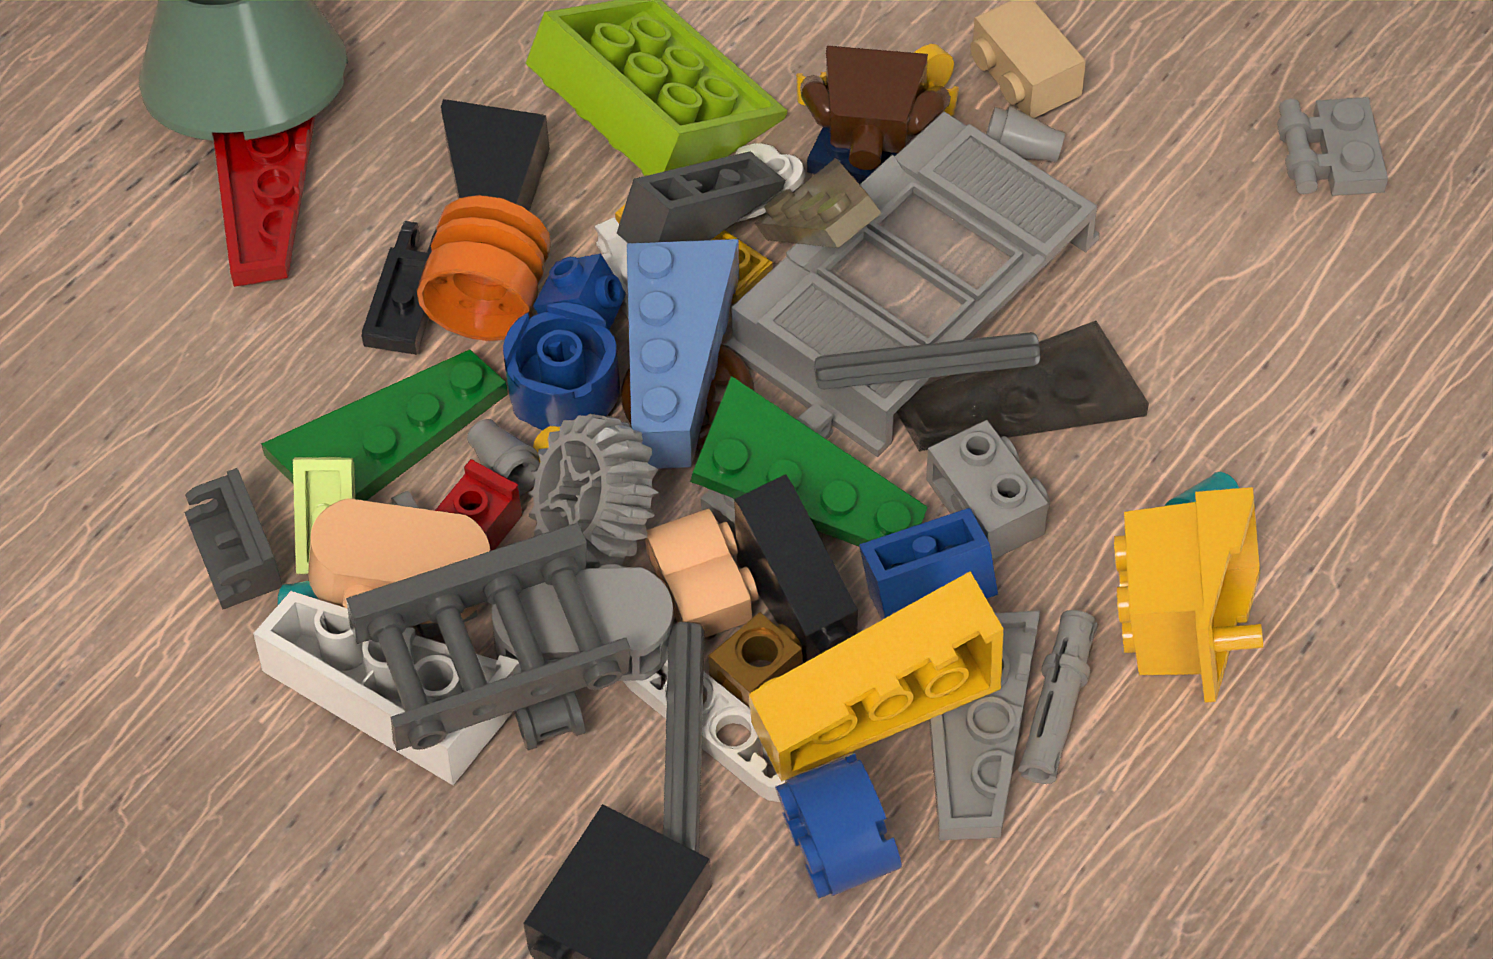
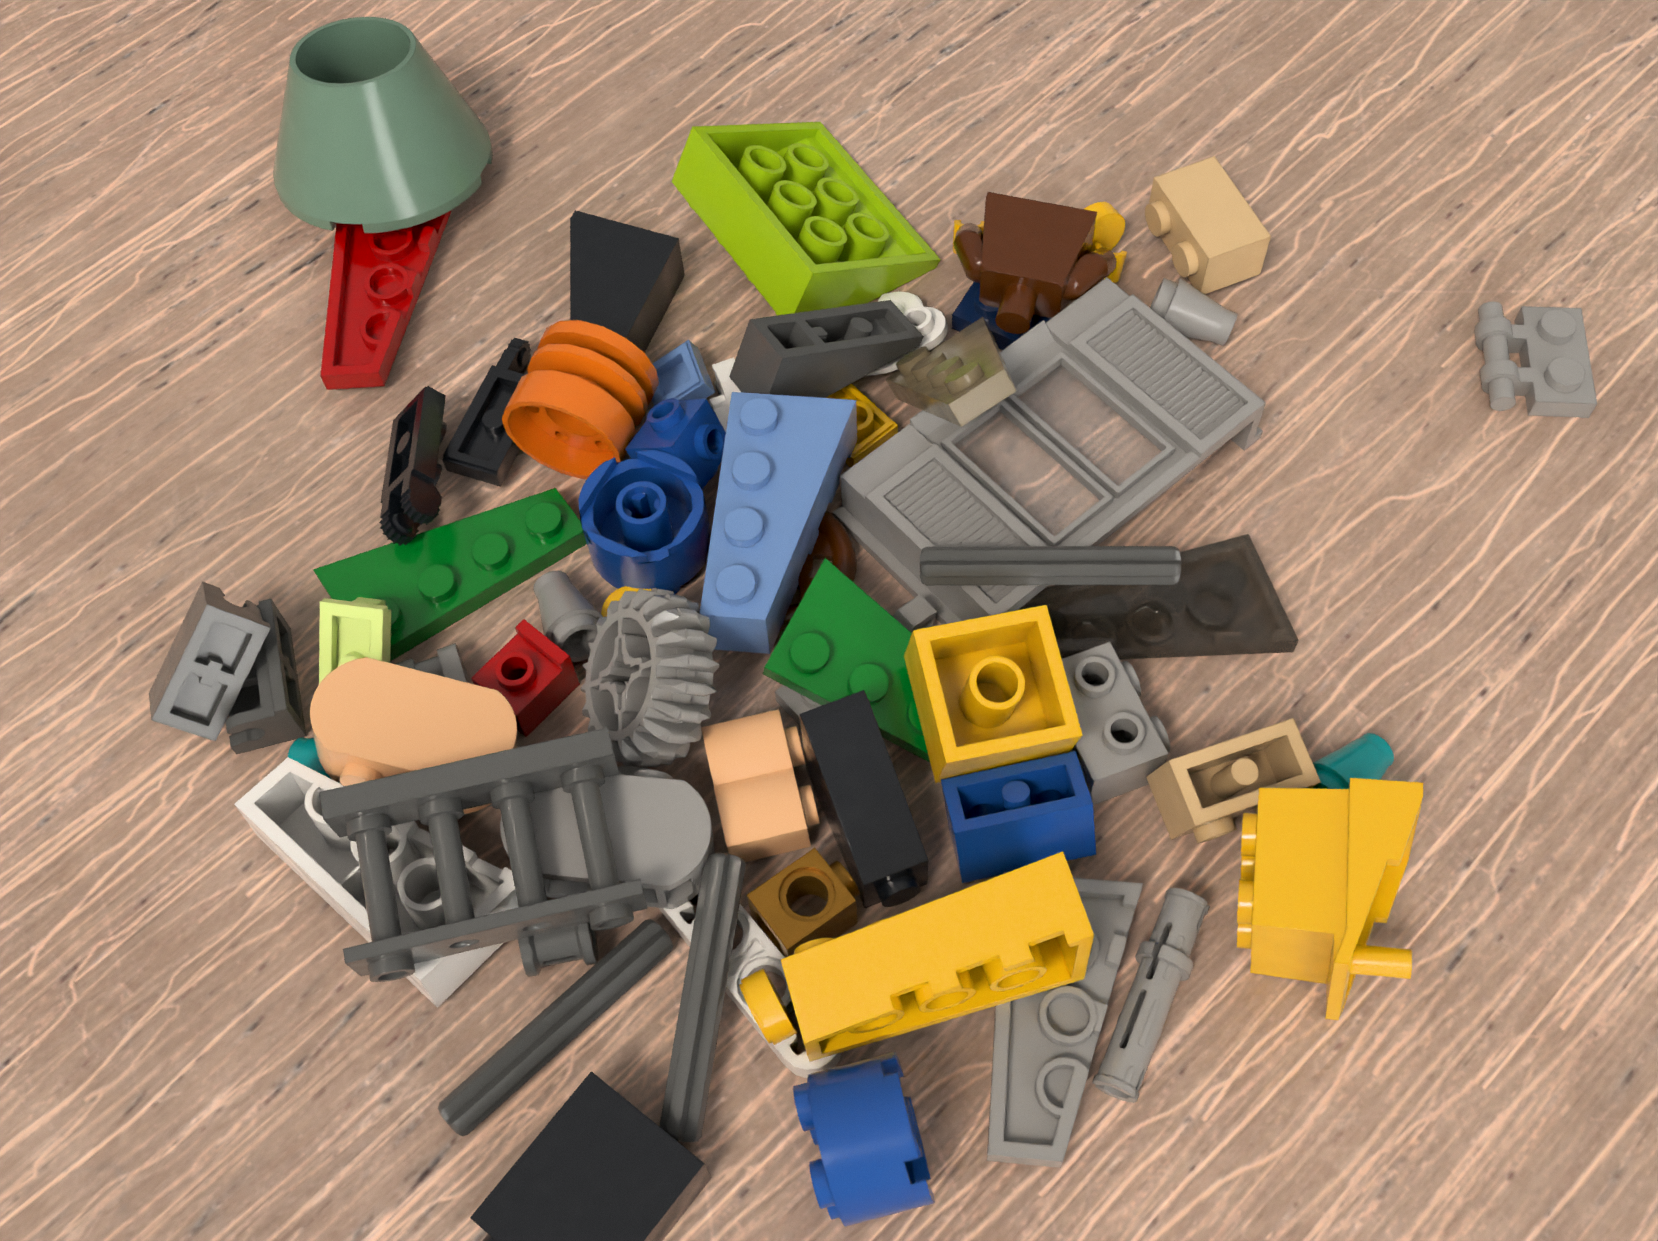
camera: 10 degrees right, 5 degrees up
(192, 527) = (207, 663): none -> hinge
(337, 342) = (412, 467): none -> black hinge
(559, 786) = (555, 1028): none -> dark grey axle
(569, 237) = (682, 375): none -> medium blue tile
(741, 738) = (767, 1007): none -> yellow tile
(891, 466) = (991, 692): none -> yellow brick
(1082, 525) = (1223, 781): none -> tan brick

